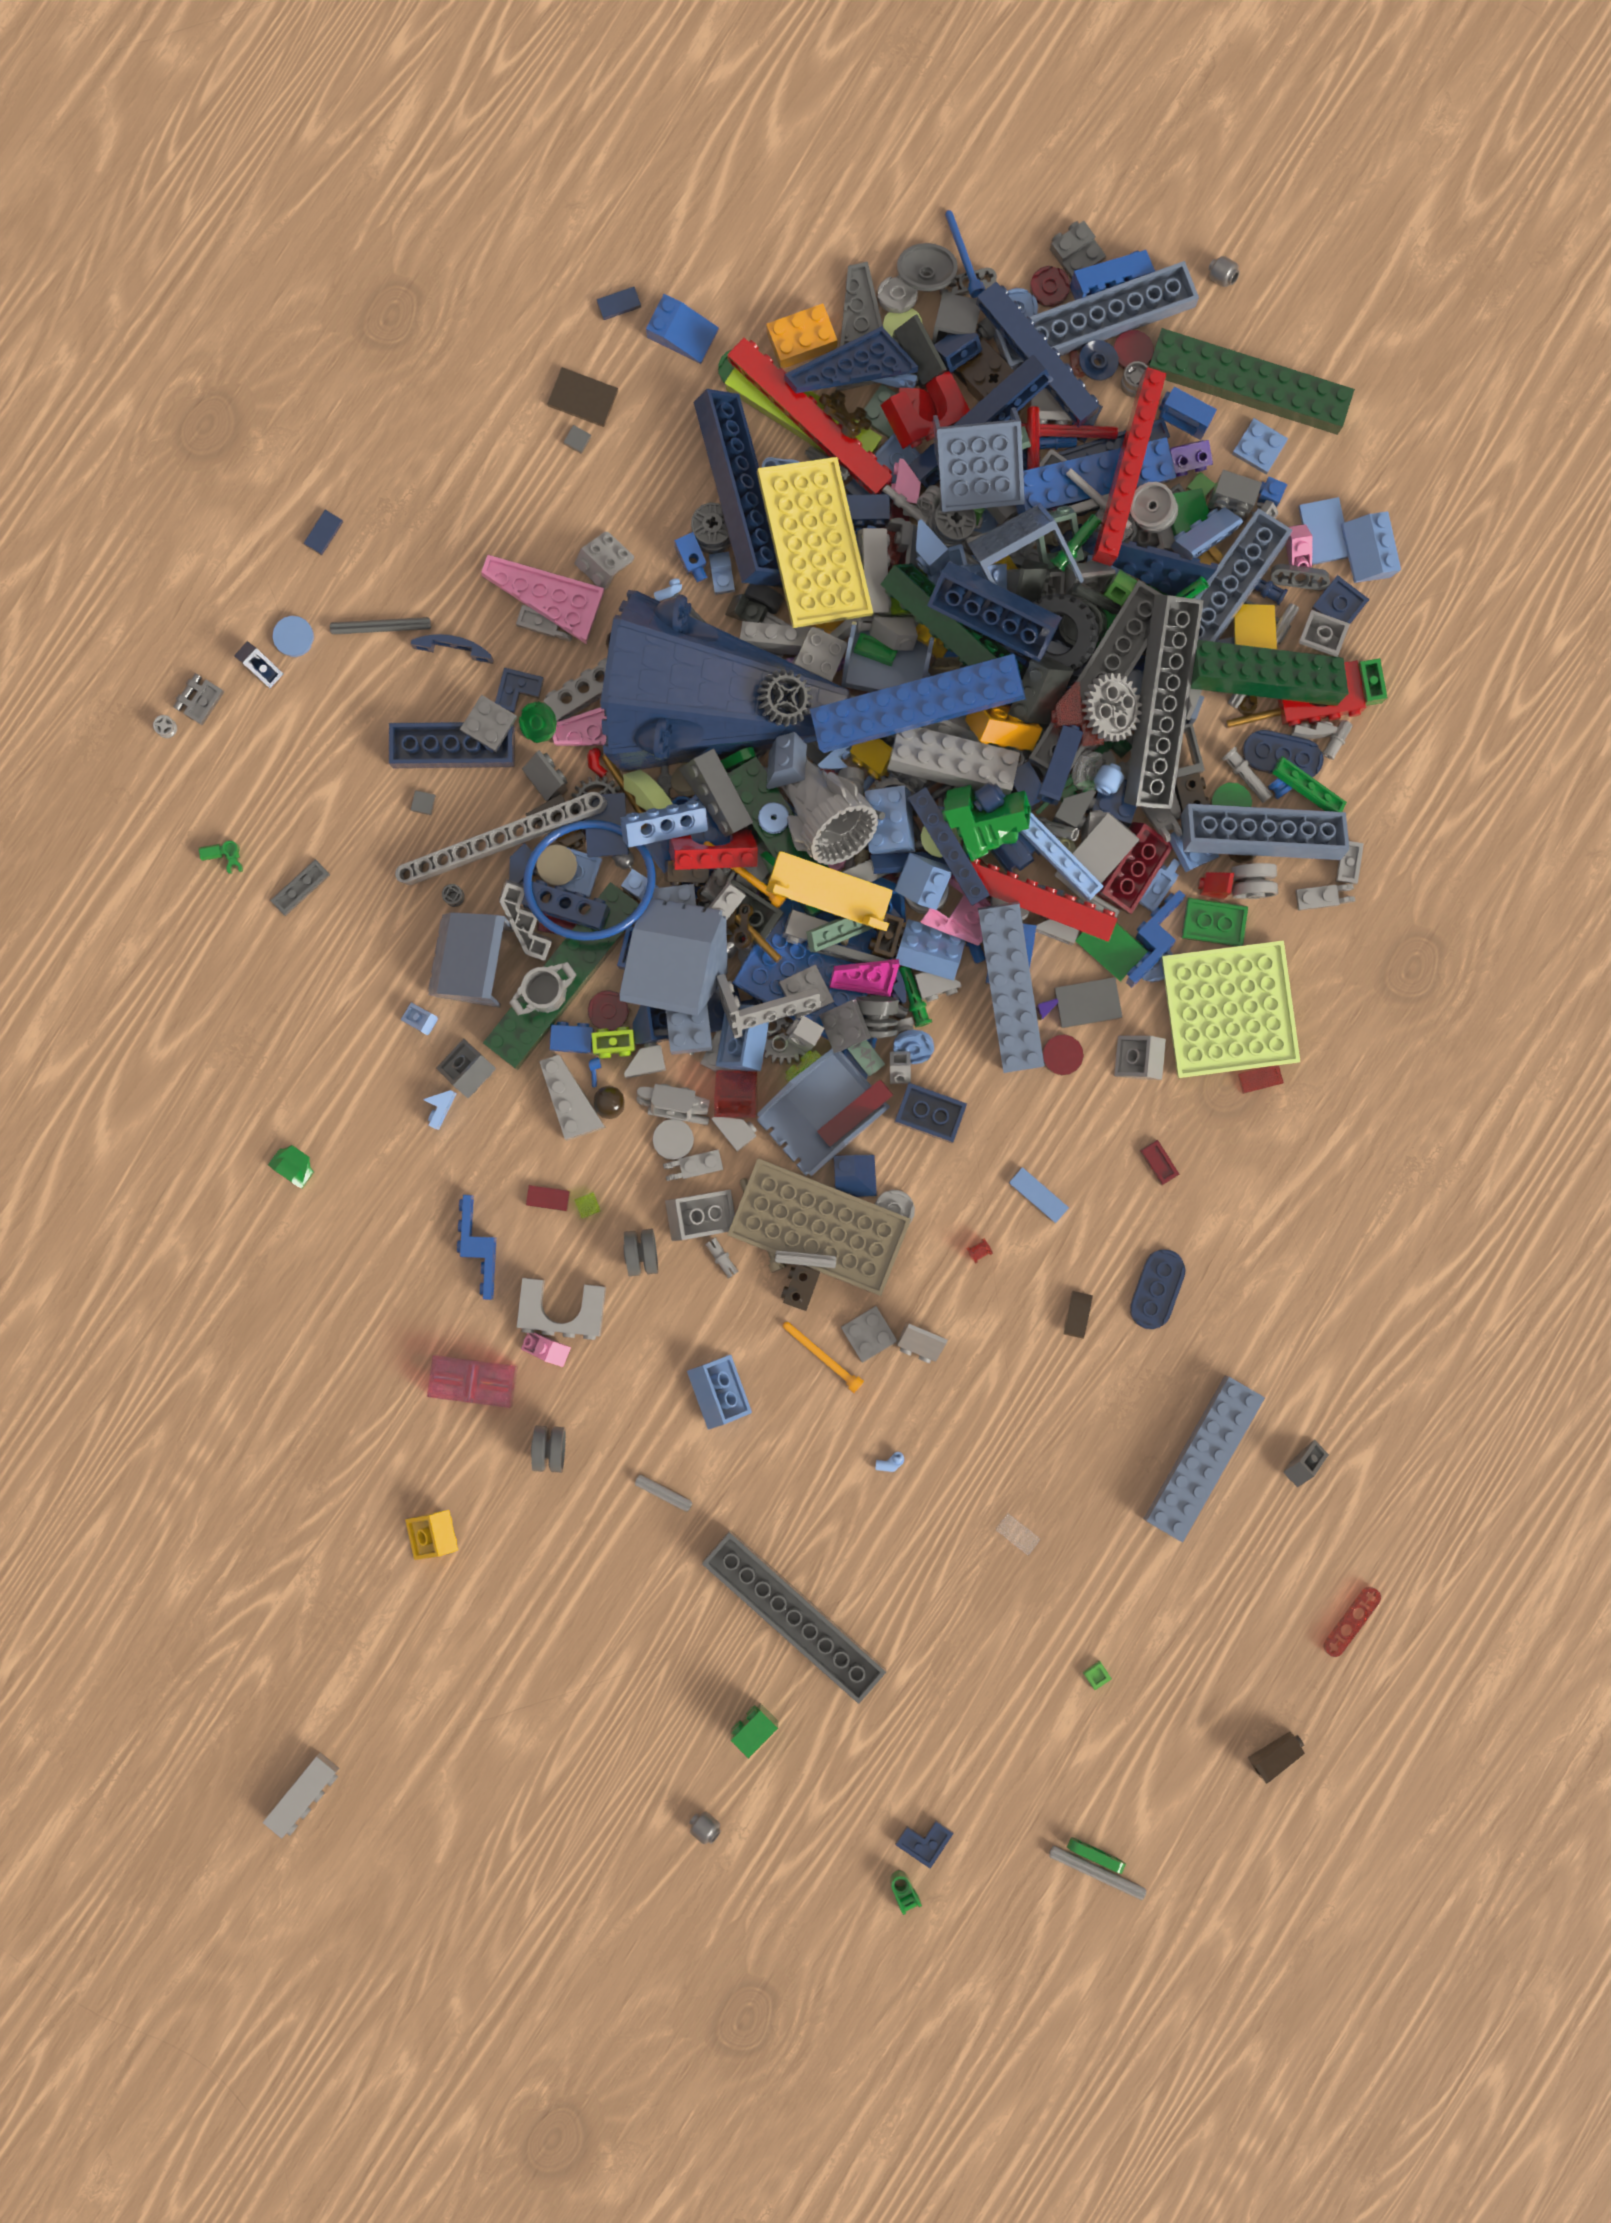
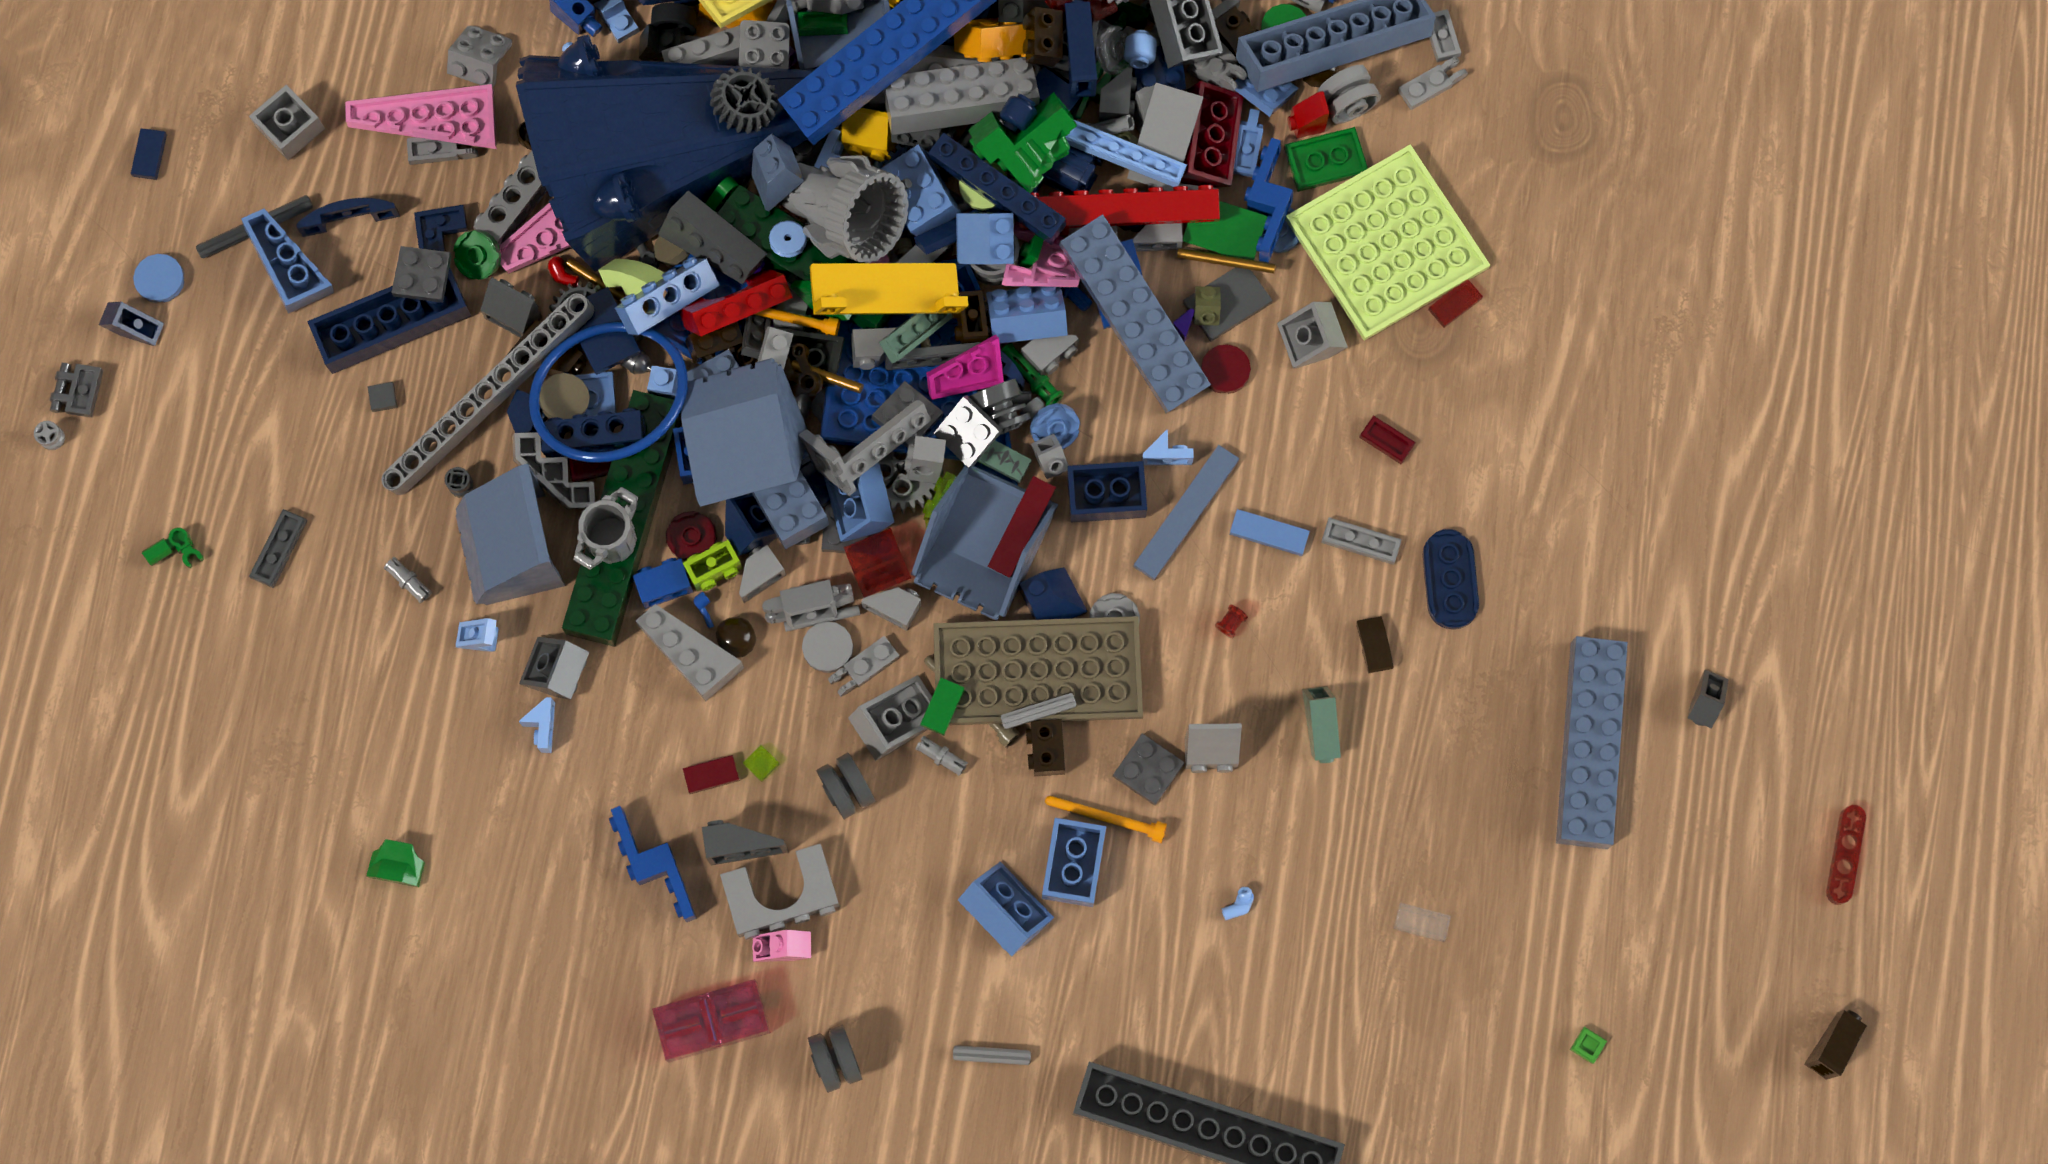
camera: 20 degrees left, 10 degrees down
(385, 954) = (407, 579): none -> light grey pin
(391, 672) = (290, 271): none -> medium blue wedge
(436, 553) = (287, 122): none -> light grey brick
(541, 1258) = (734, 843): none -> dark grey slope
(736, 1224) = (942, 706): none -> green tile
(783, 1381) = (1073, 862): none -> medium blue brick
(954, 903) = (1030, 252): none -> green plate
(983, 1100) = (1160, 454): none -> light blue slope
(983, 1152) = (1186, 512): none -> sand blue tile
(1011, 1357) = (1322, 723): none -> sand green slope
(1035, 743) = (1043, 36): none -> dark brown brick
(1070, 1001) = (1207, 305): none -> olive bracket
(1101, 971) = (1226, 260): none -> pearl gold bar
(1104, 1231) = (1361, 541): none -> light grey tile

